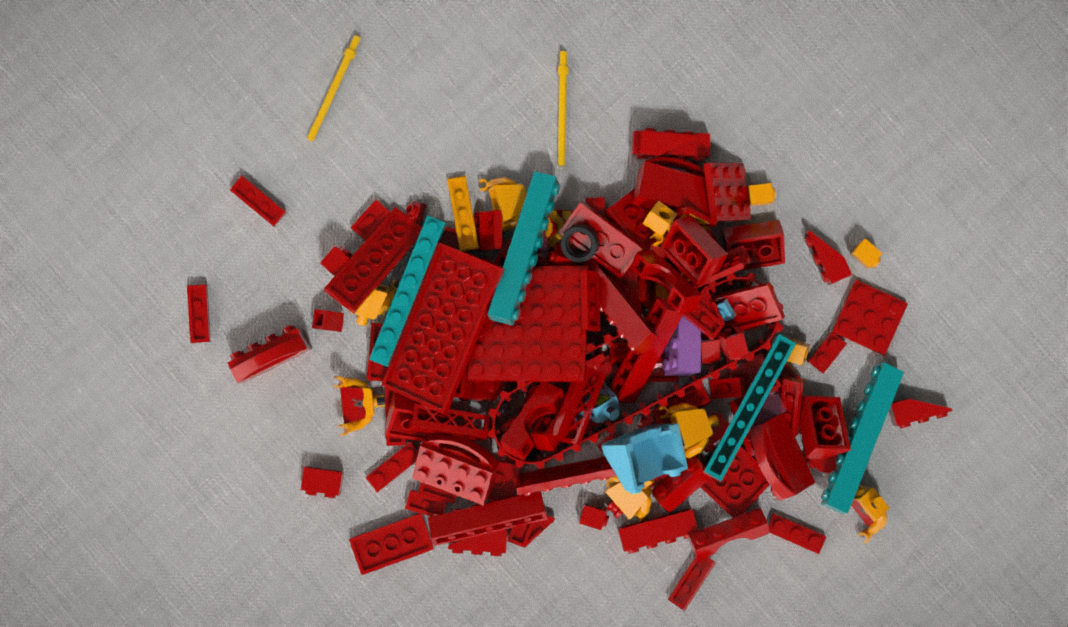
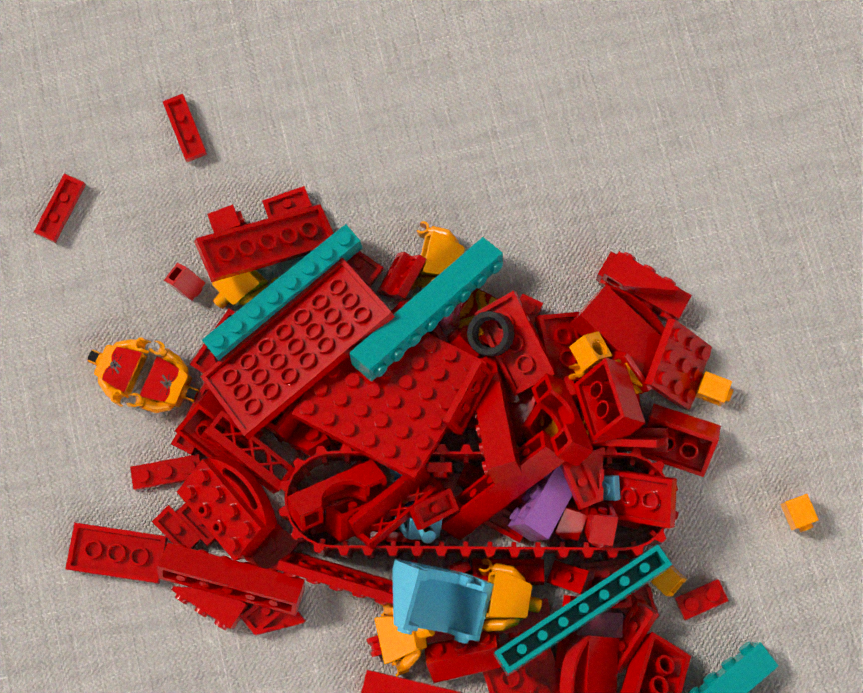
camera: 35 degrees right, 10 degrees down
(269, 355) = (103, 284): red piece -> none
(315, 410) = (119, 367): none -> torso
(322, 481) = (83, 446): red brick -> none
(348, 55) = (358, 33): yellow bar -> none
(416, 211) = (339, 218): red plate -> none
(463, 214) = (385, 246): light orange tile -> none
(563, 71) = (567, 158): yellow bar -> none
(593, 517) = (348, 642): red brick -> none
(607, 393) = (433, 508): none -> red plate
(830, 261) = (755, 501): red slope -> none
(869, 317) = (768, 586): red plate -> none

